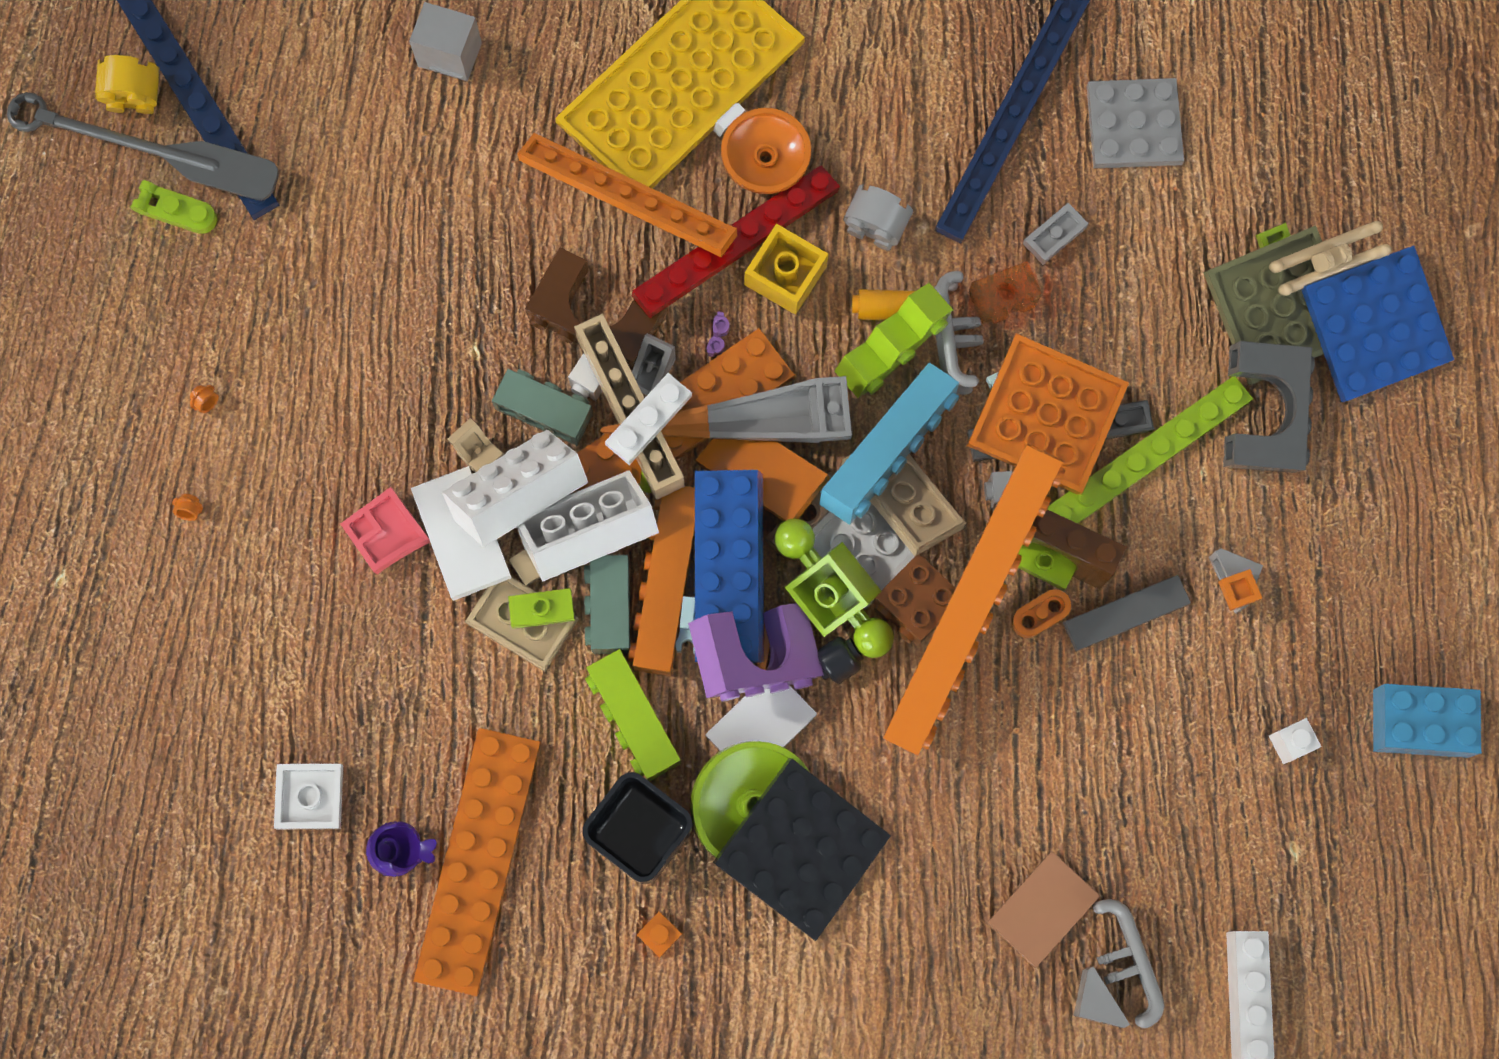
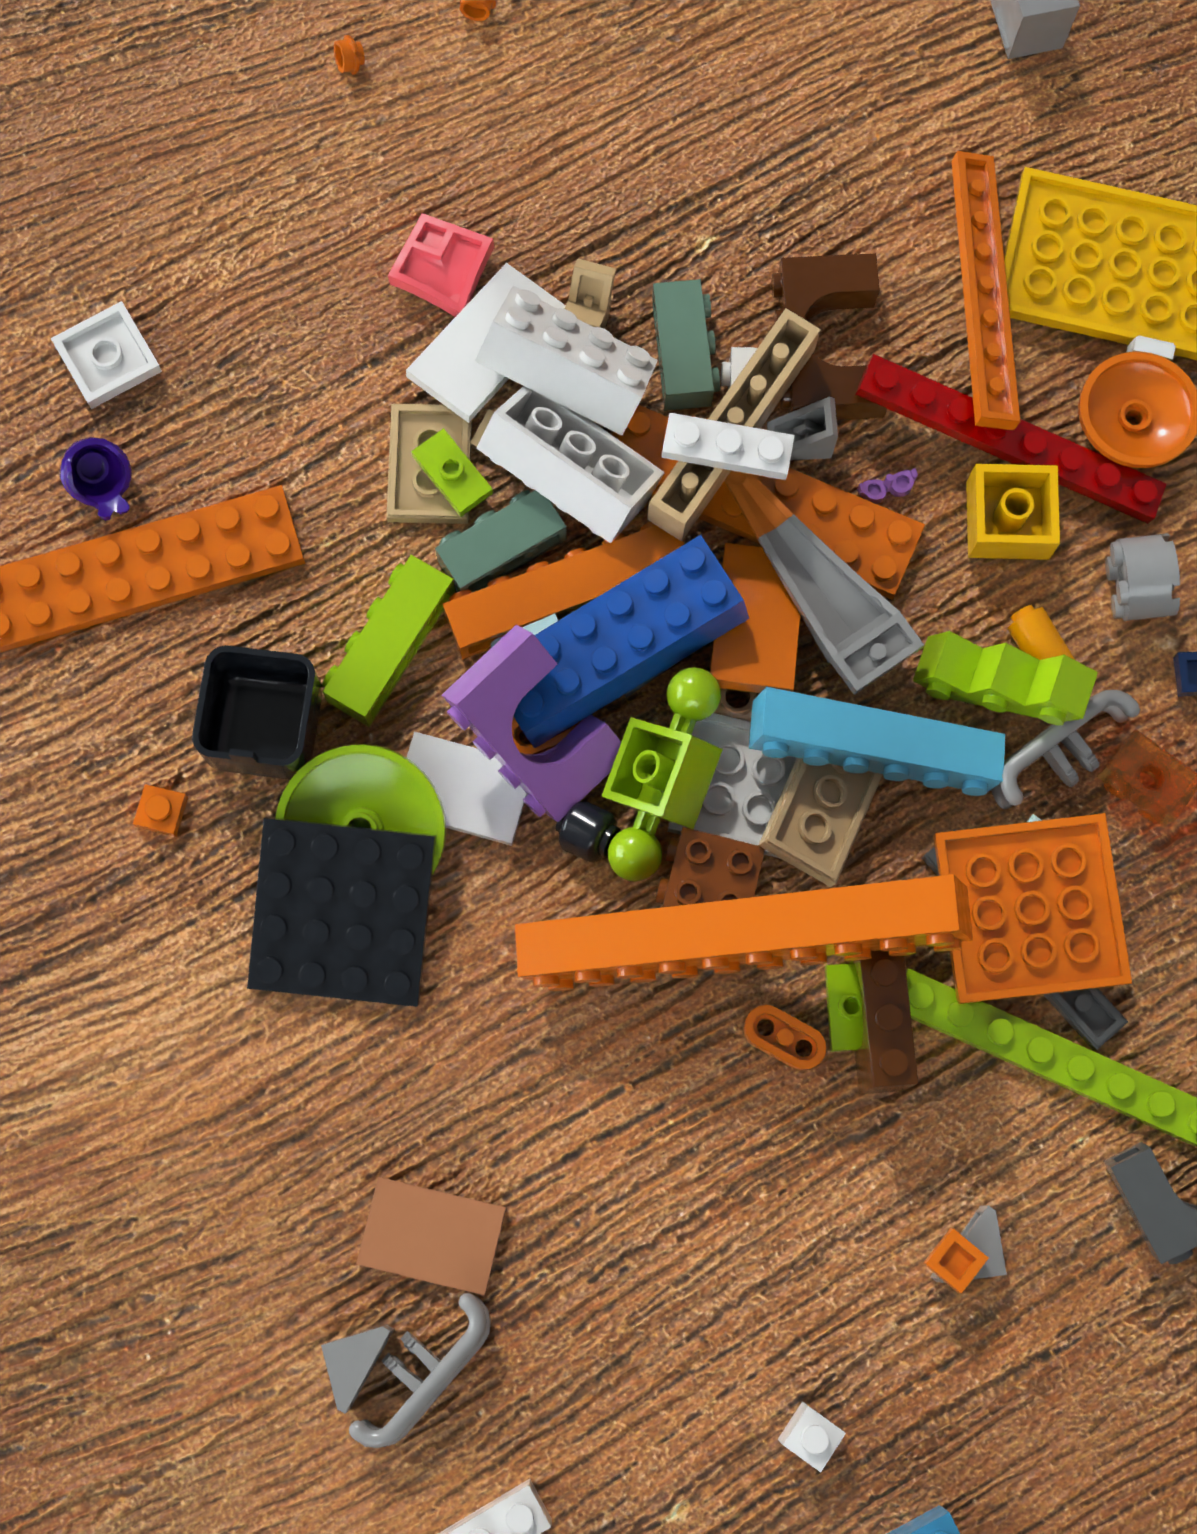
camera: 60 degrees right, 0 degrees up
(1126, 613) = (849, 1142): dark grey tile -> none

